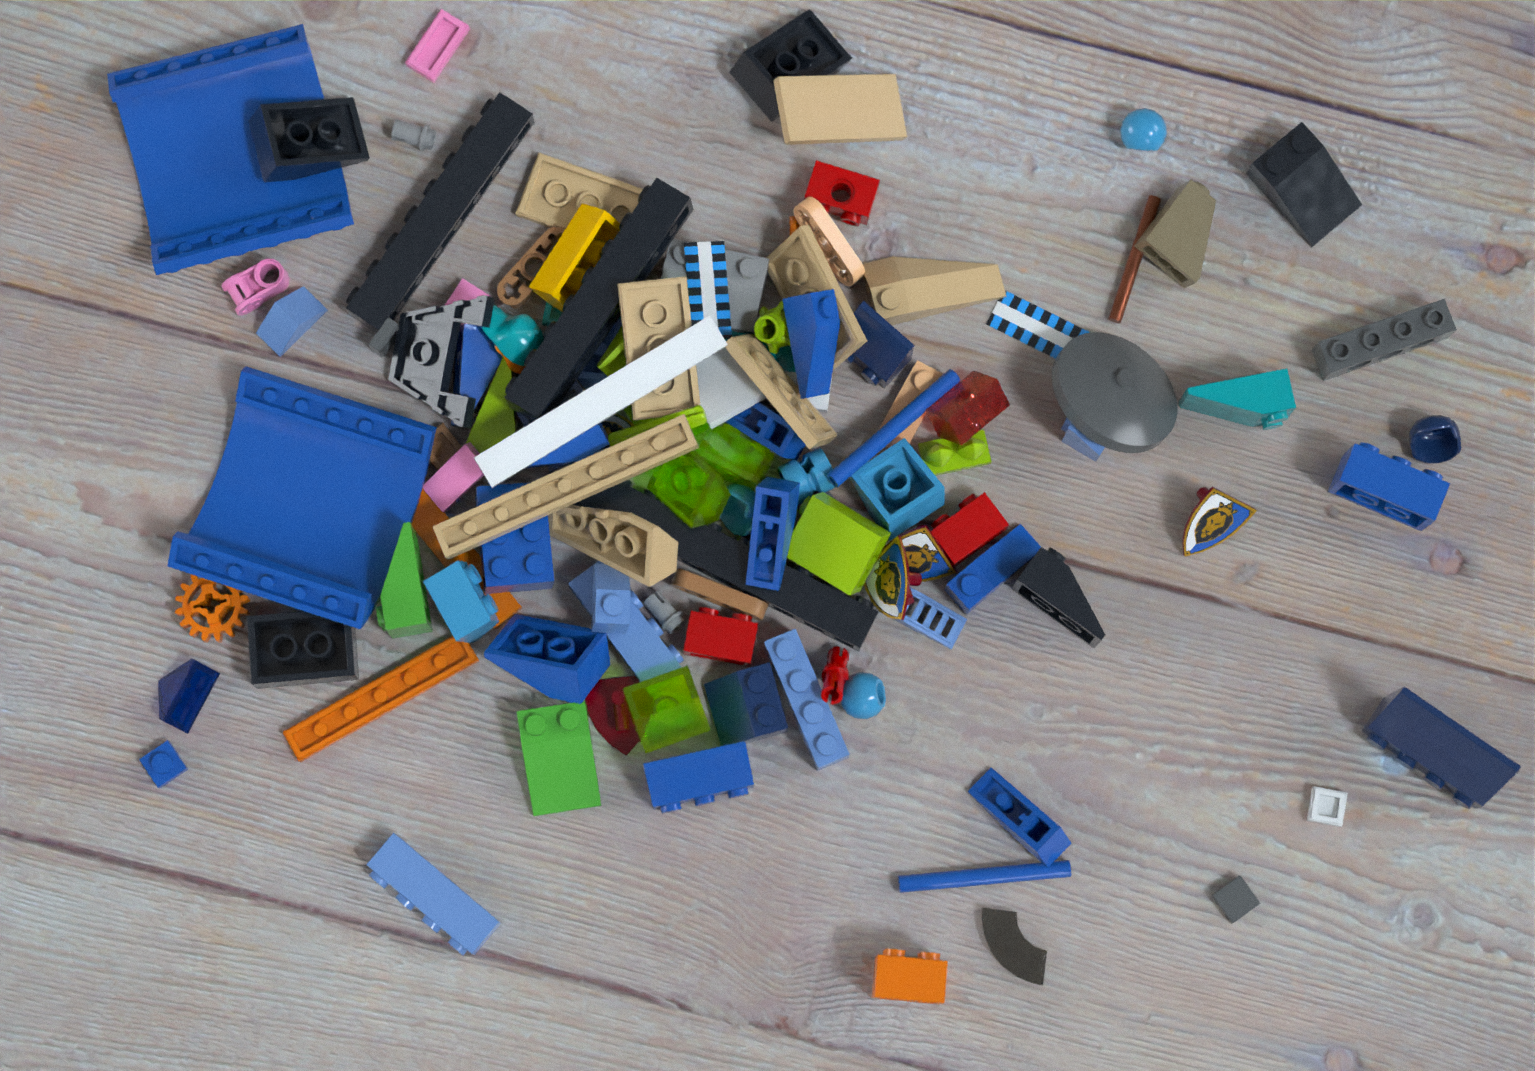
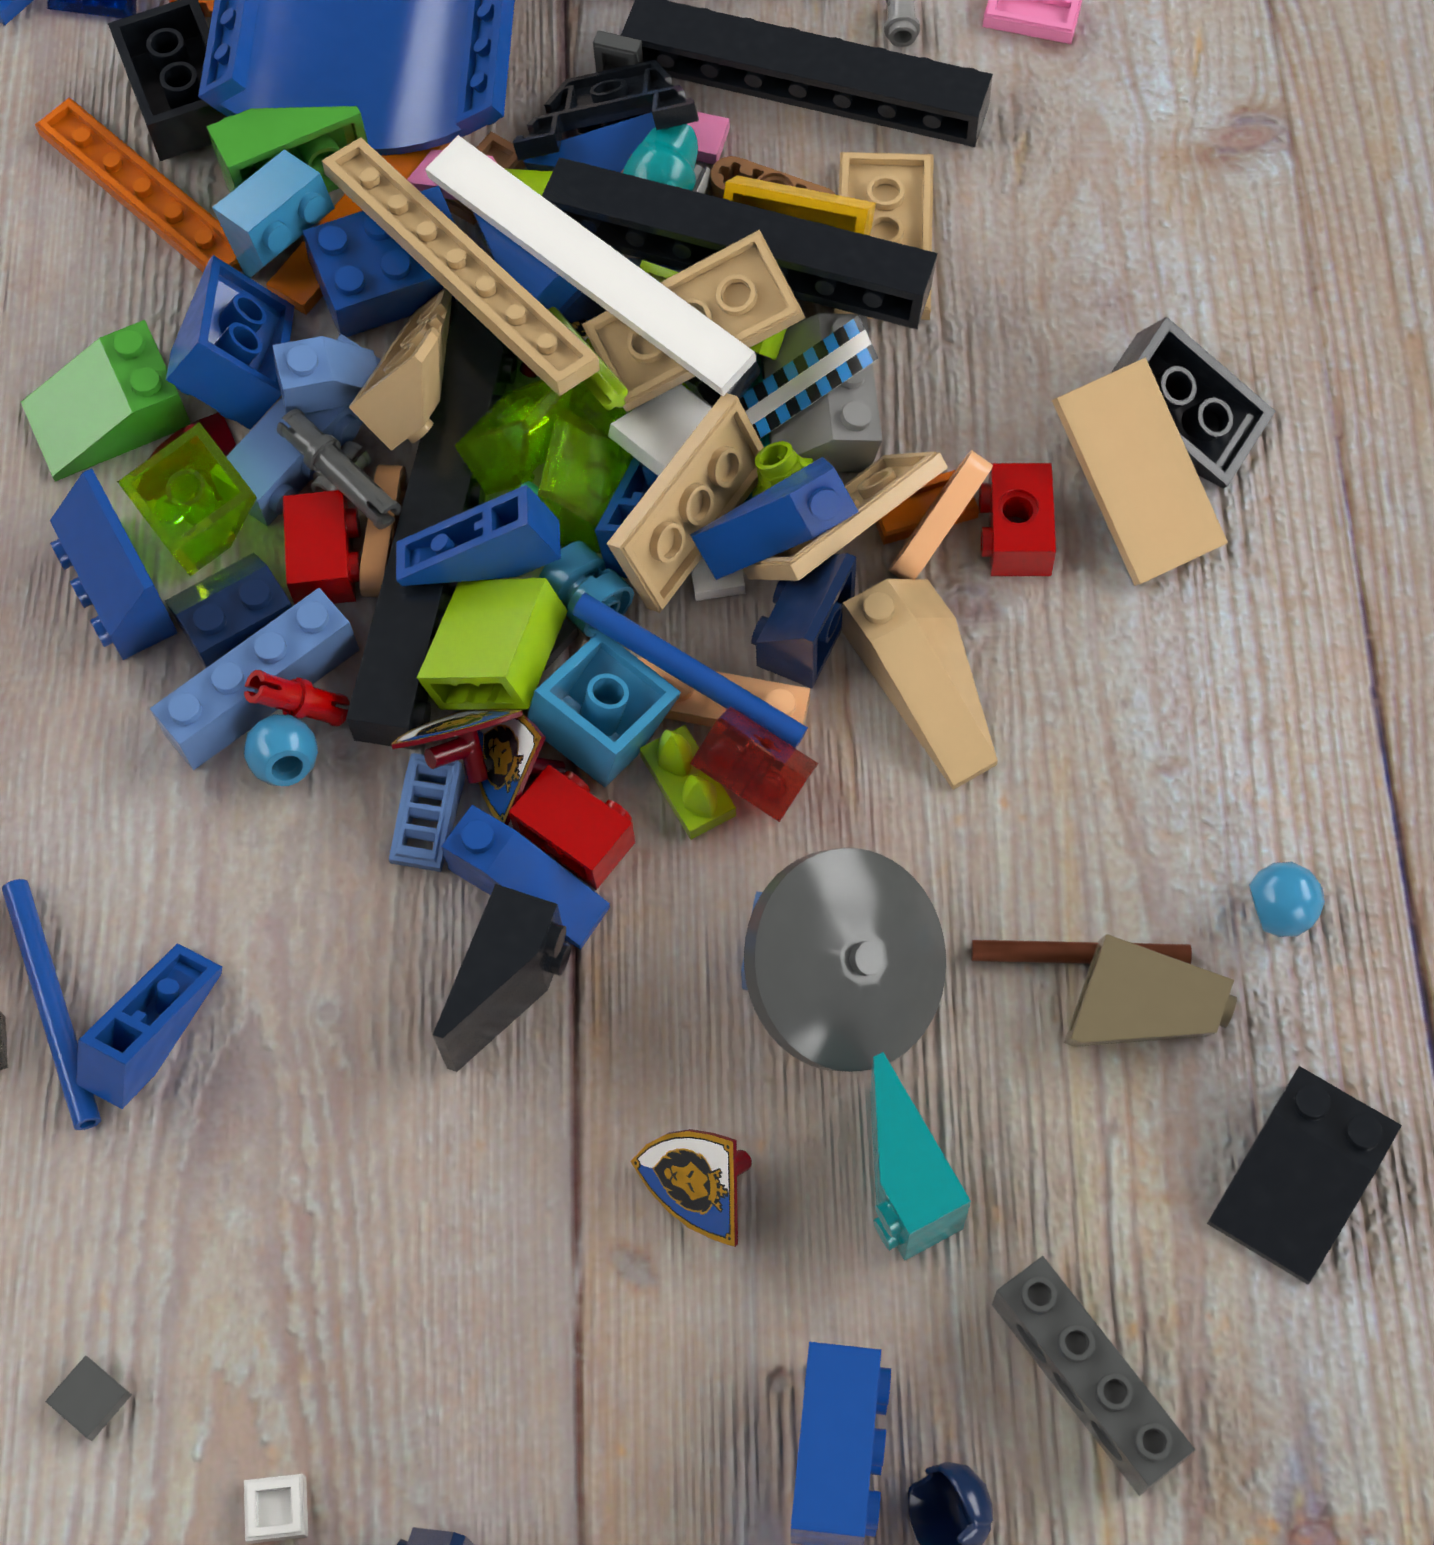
camera: 80 degrees right, 15 degrees down
(679, 608) = (324, 455): none -> dark grey pin
(1032, 325) = (926, 833): sticker -> none

